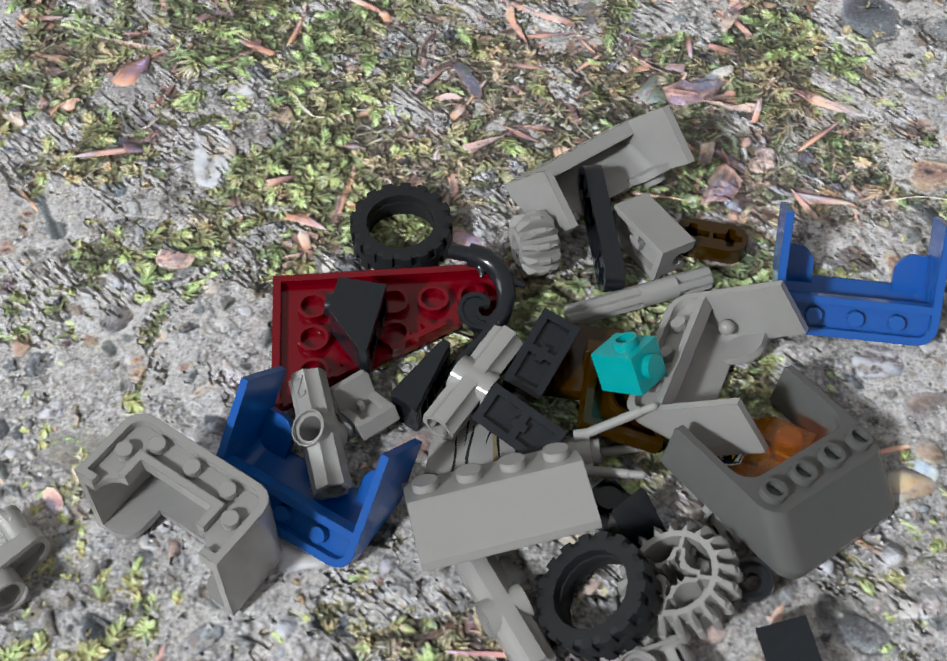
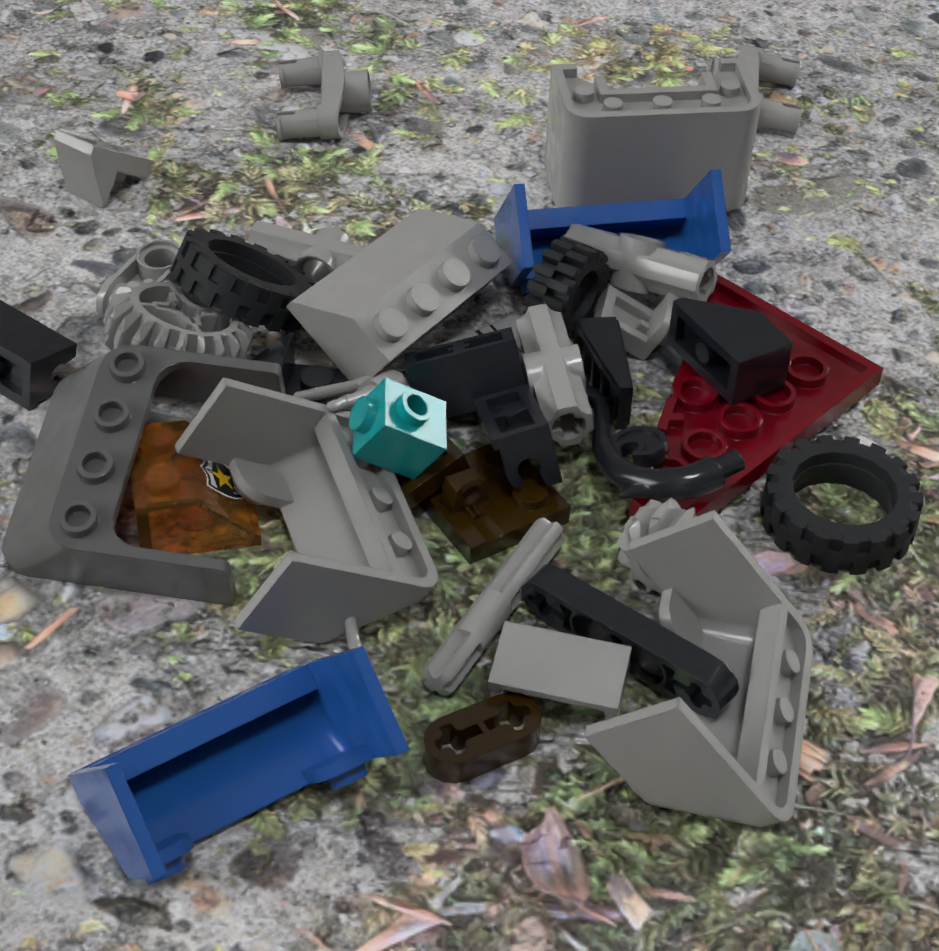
camera: 135 degrees right, 10 degrees down
(383, 433) = (569, 280): none -> black tyre

